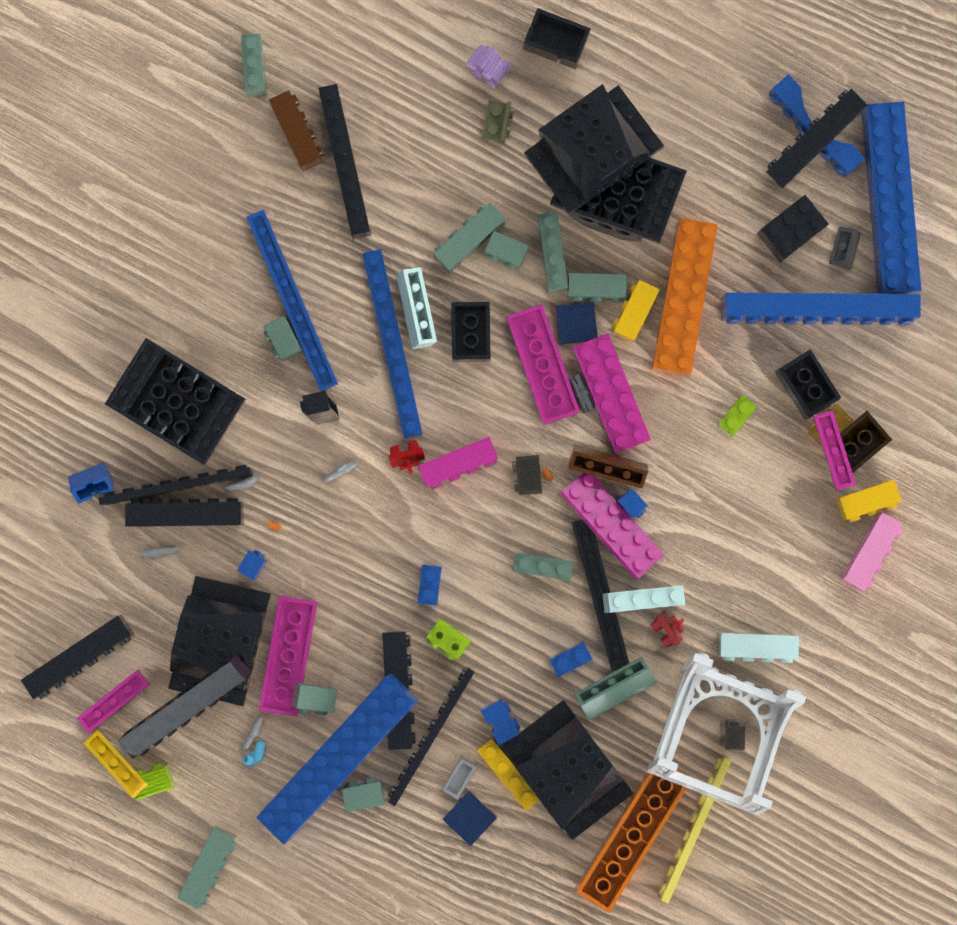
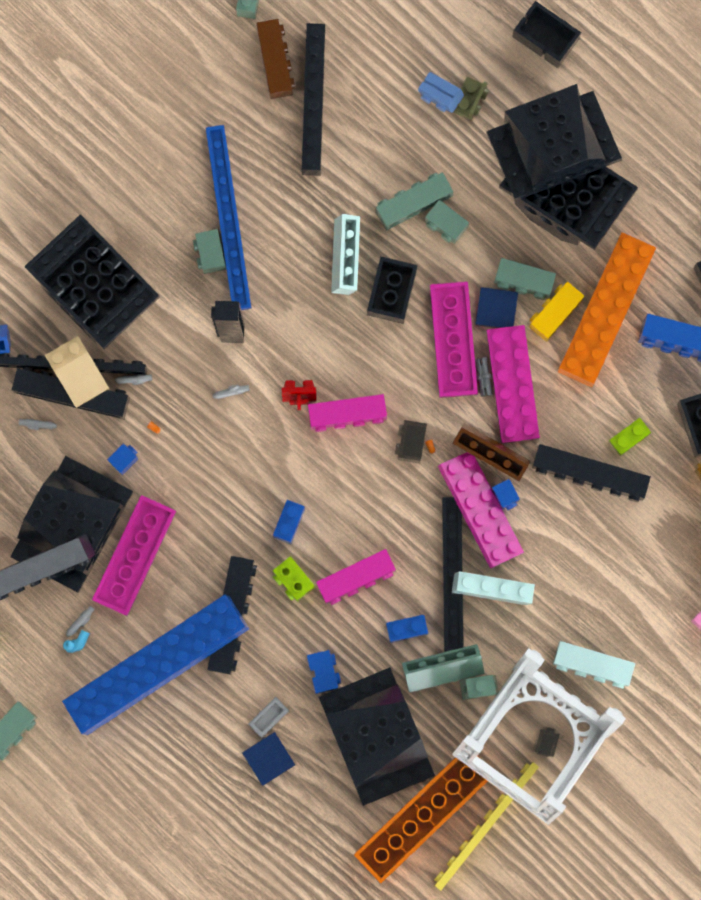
camera: 15 degrees right, 5 degrees down
(184, 492) = (77, 371): none -> tan slope
(314, 697) = (149, 601): sand green brick -> none
(363, 794) = (171, 708): sand green brick -> none
(392, 344) = (313, 283): blue plate -> none
(426, 742) = (245, 673): black plate -> none
(467, 123) = (440, 92): none -> medium blue brick
(488, 64) = (474, 43): lavender brick -> none
(507, 621) = (355, 577): none -> dark pink brick
(508, 774) = (317, 726): yellow plate -> none
(543, 566) = (403, 532): sand green brick -> none
(552, 252) = (490, 235): sand green brick -> none
(654, 697) = (479, 687): none -> sand green torso
(671, 626) = (506, 616): red hips -> none
(709, 461) = (591, 472): none -> black brick

